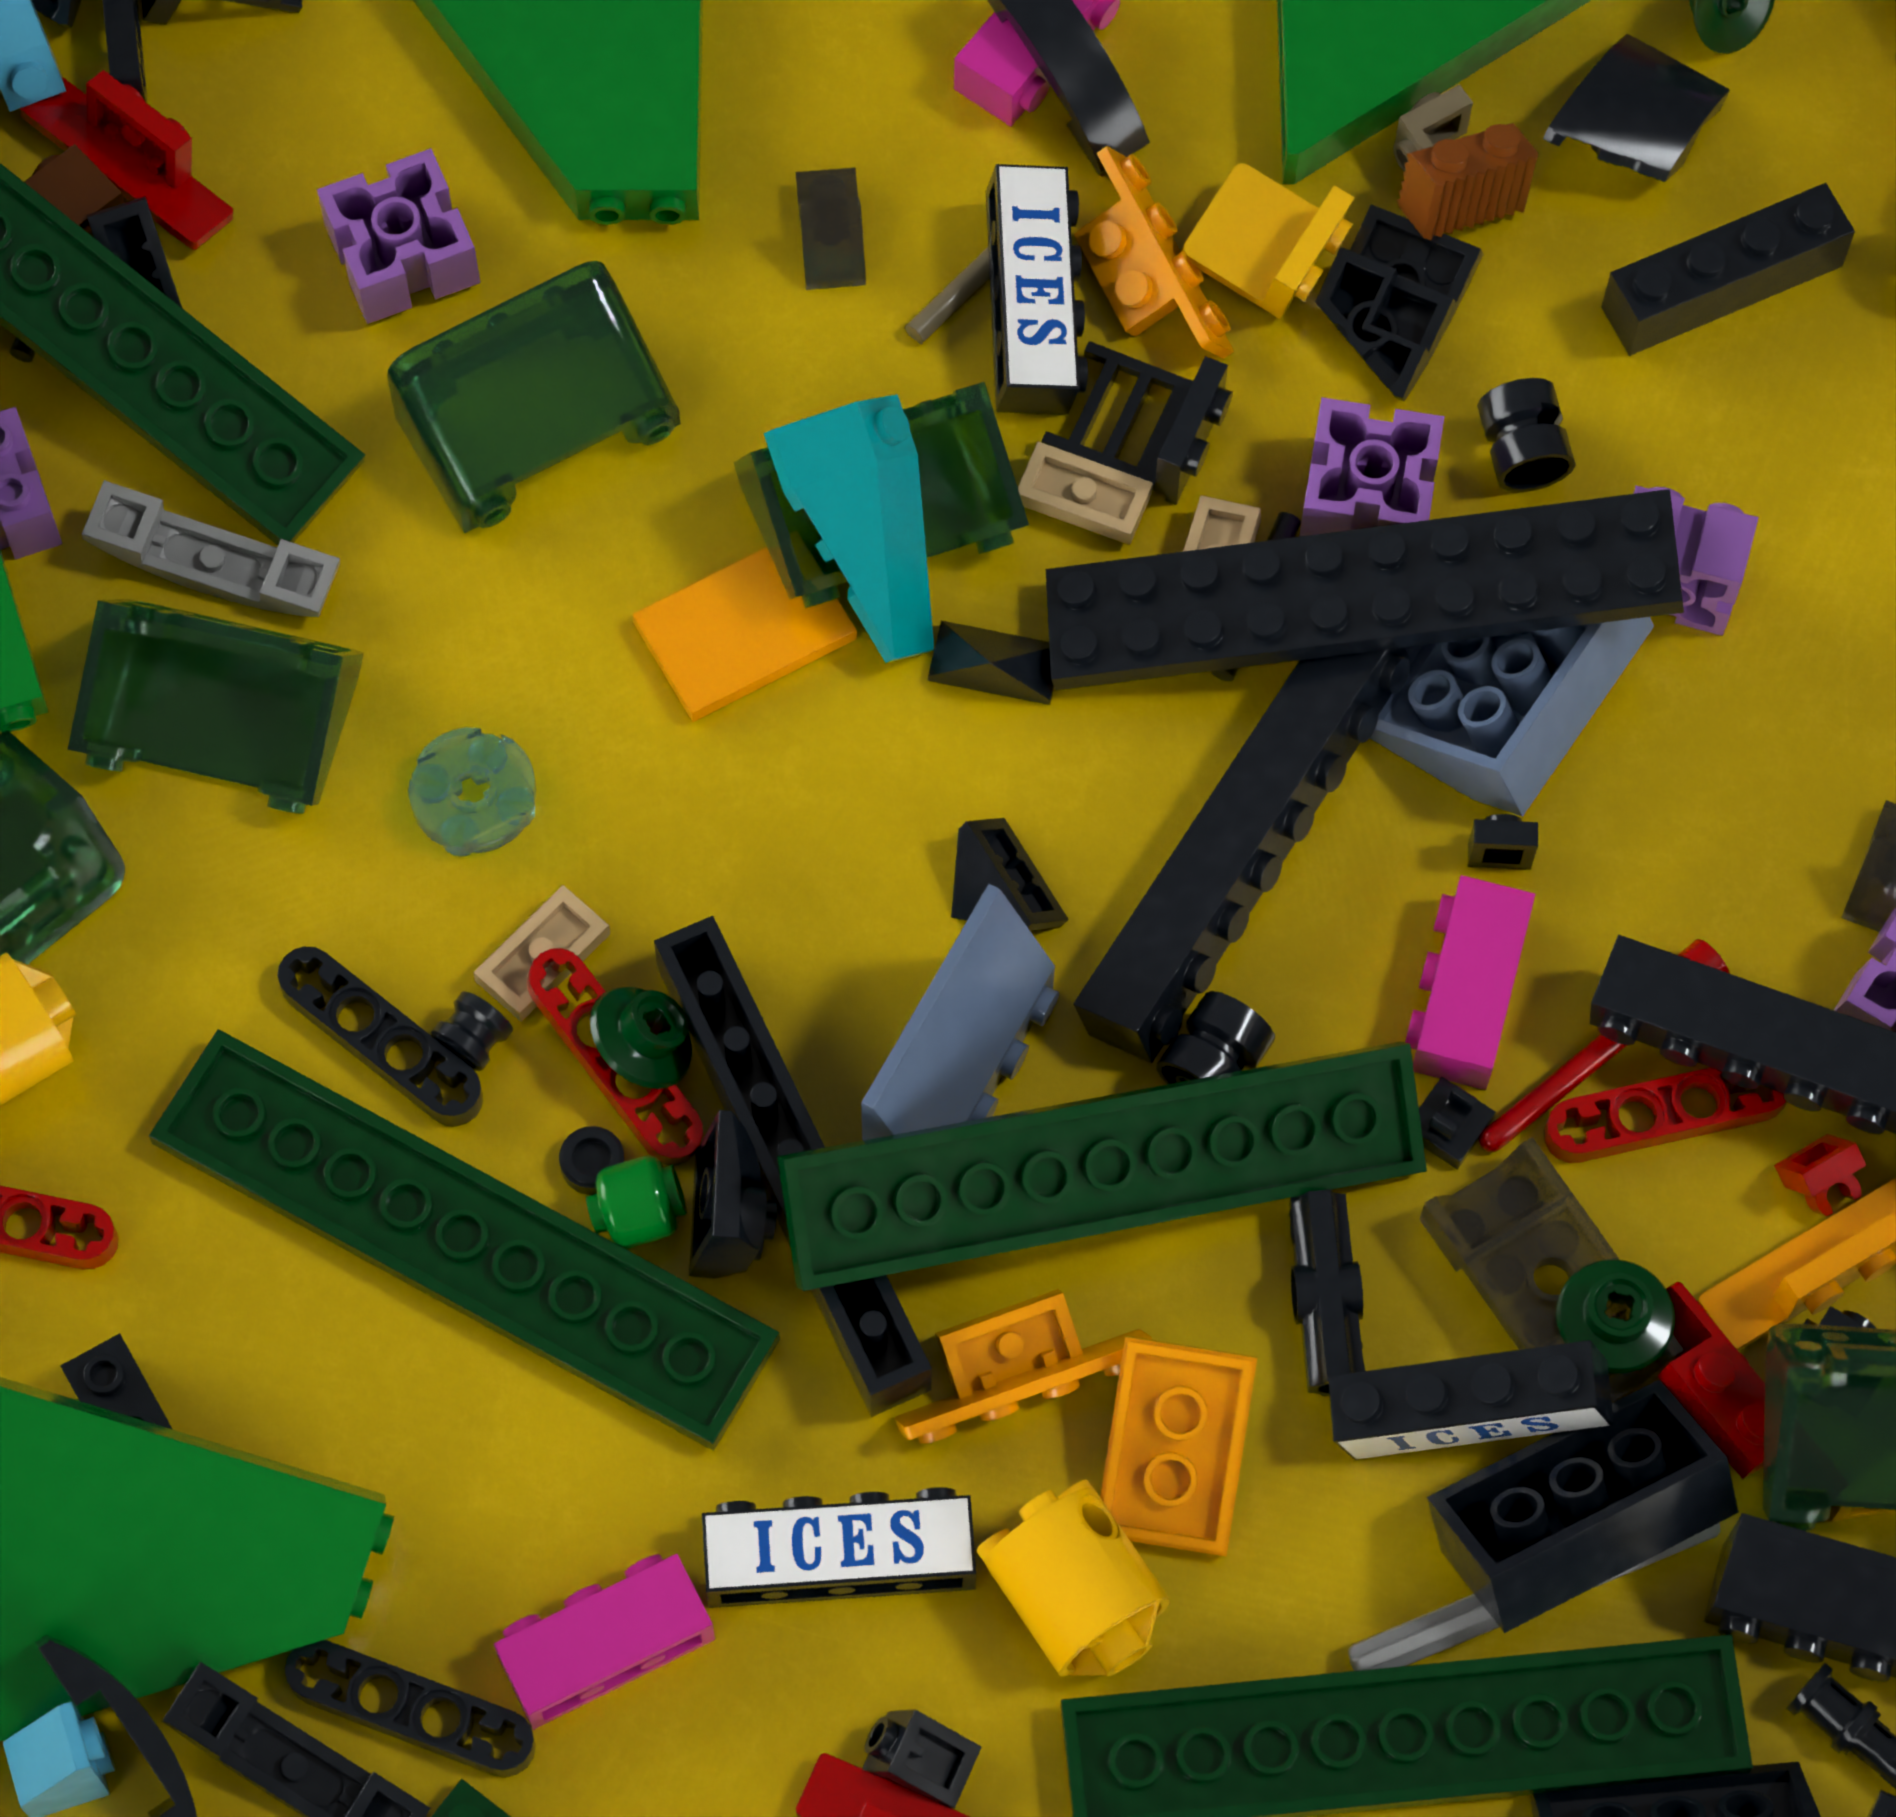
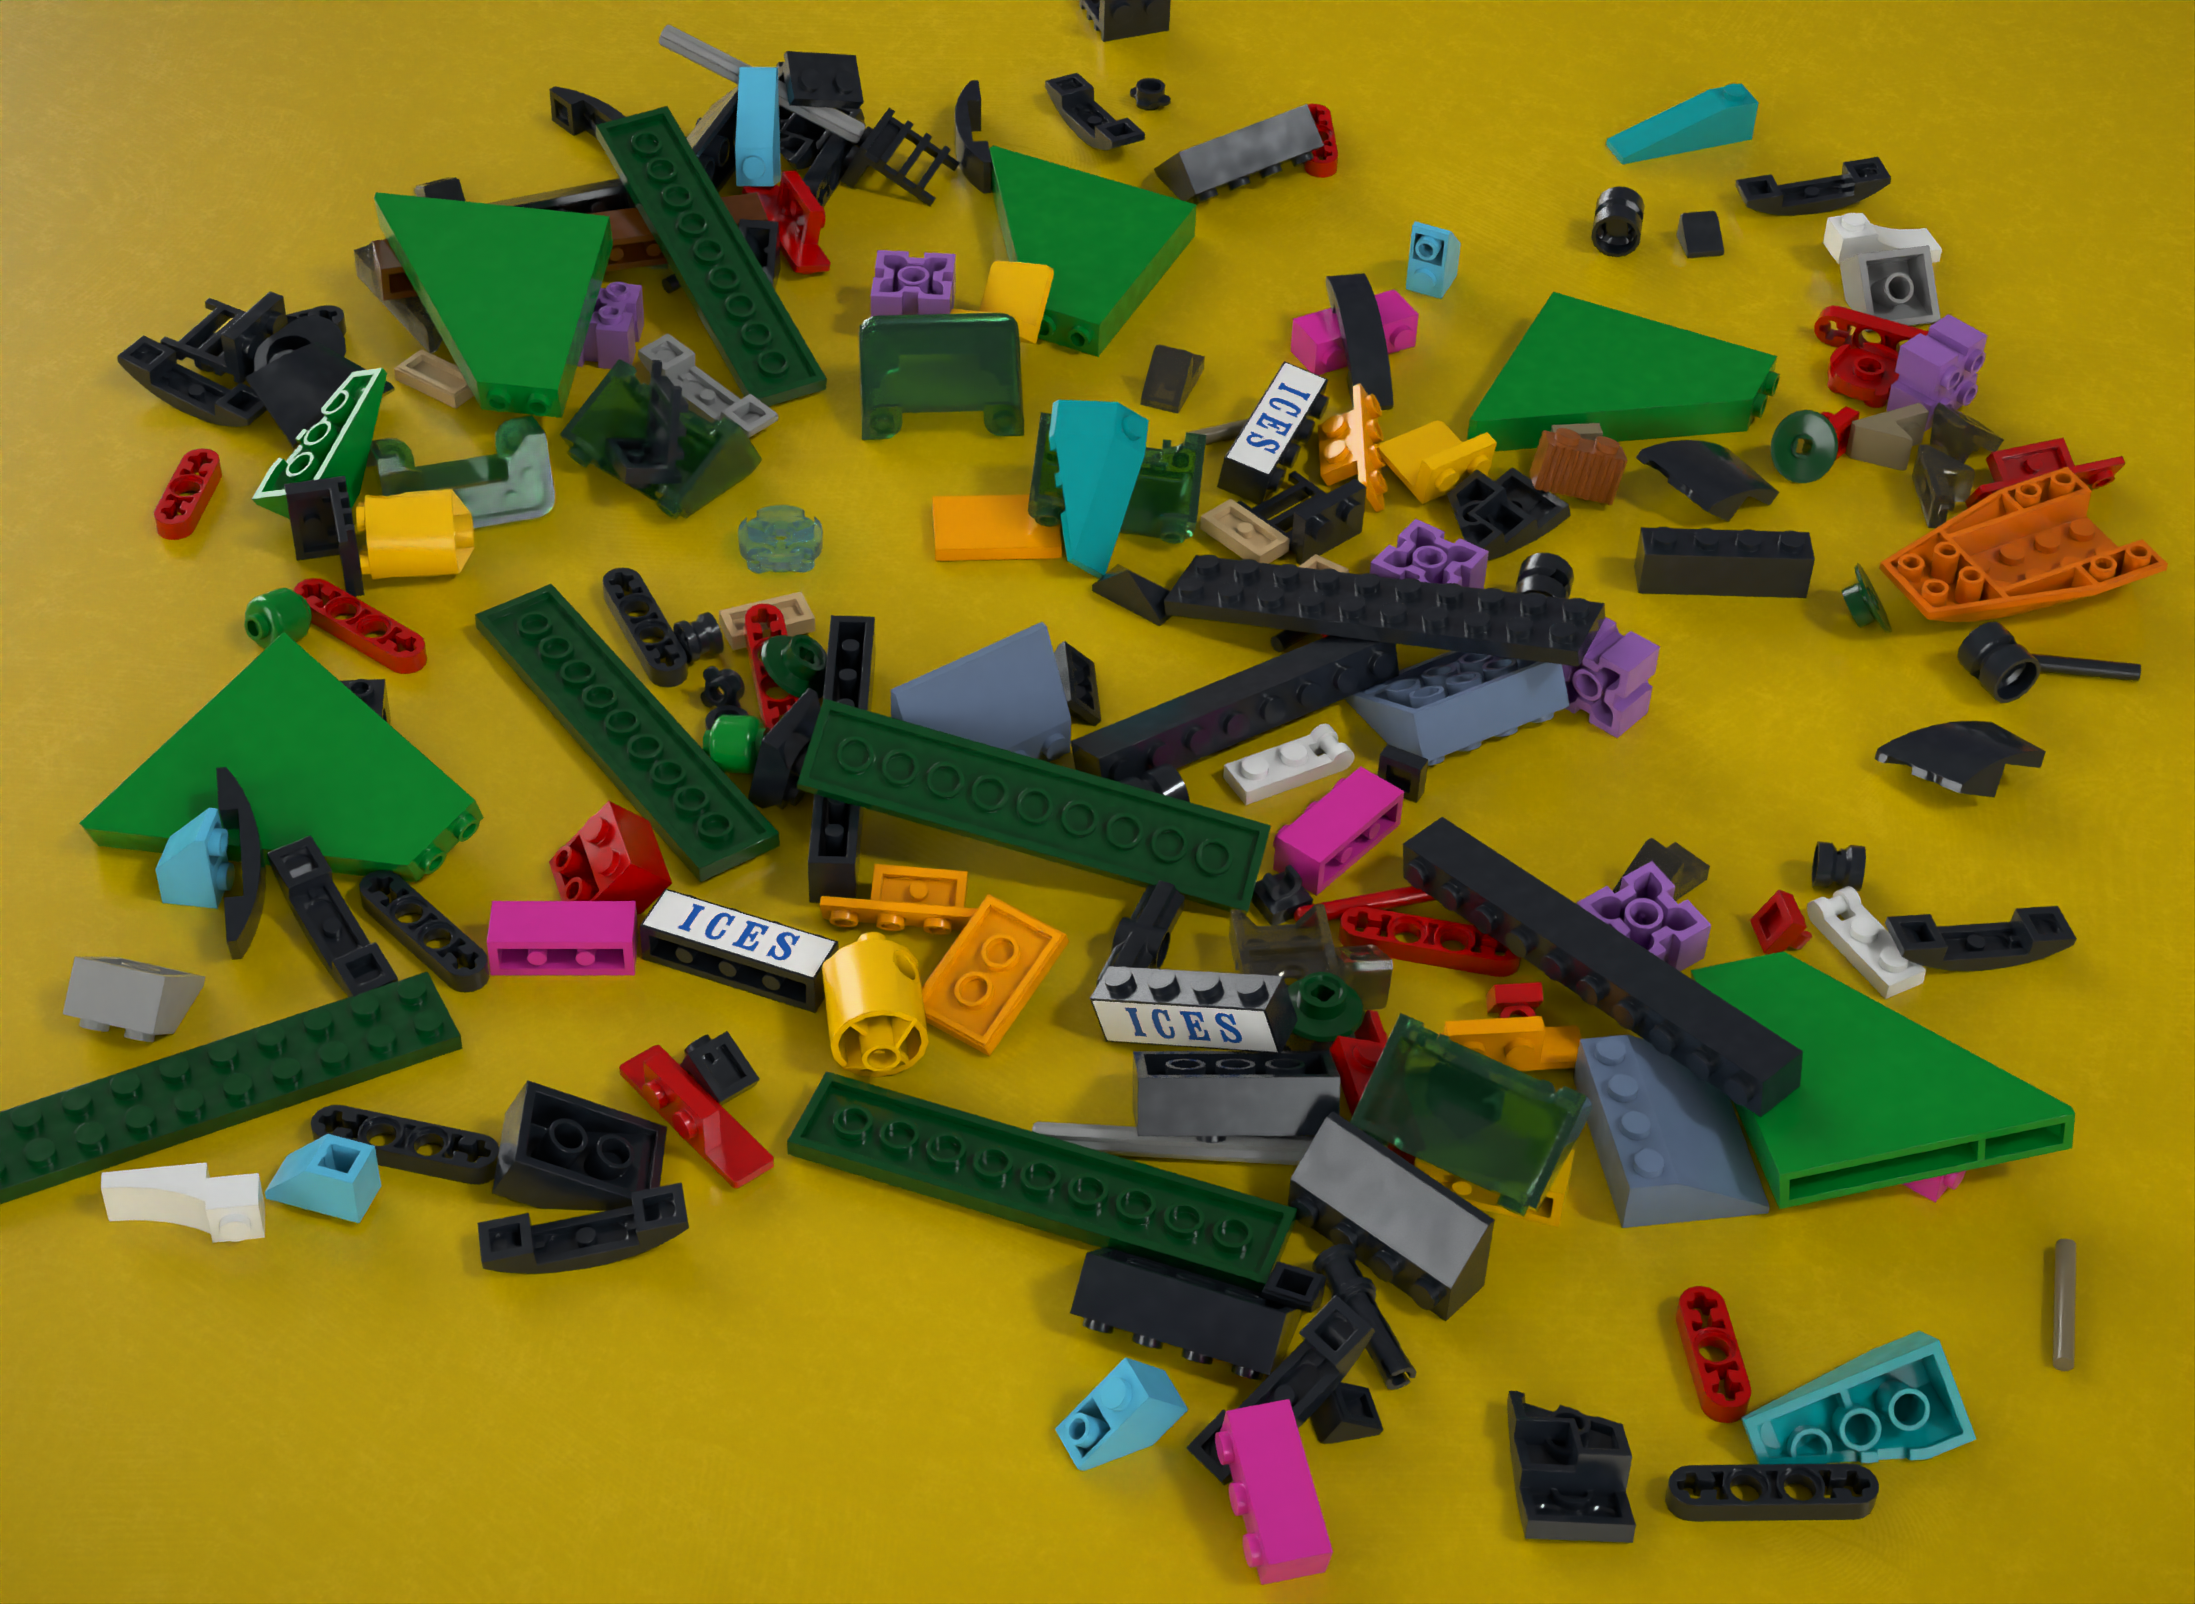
camera: 25 degrees right, 25 degrees down
(219, 723) = (653, 458): none -> black plate
(552, 208) = (1019, 292): none -> yellow bracket
(557, 1108) = (728, 681): none -> black plate
(595, 1496) = (612, 860): none -> red slope
(1345, 889) = (1288, 765): none -> white plate
(1621, 1206) = (1367, 972): none -> clear smoke slope
(1790, 1762) = (1295, 1287): none -> black slope

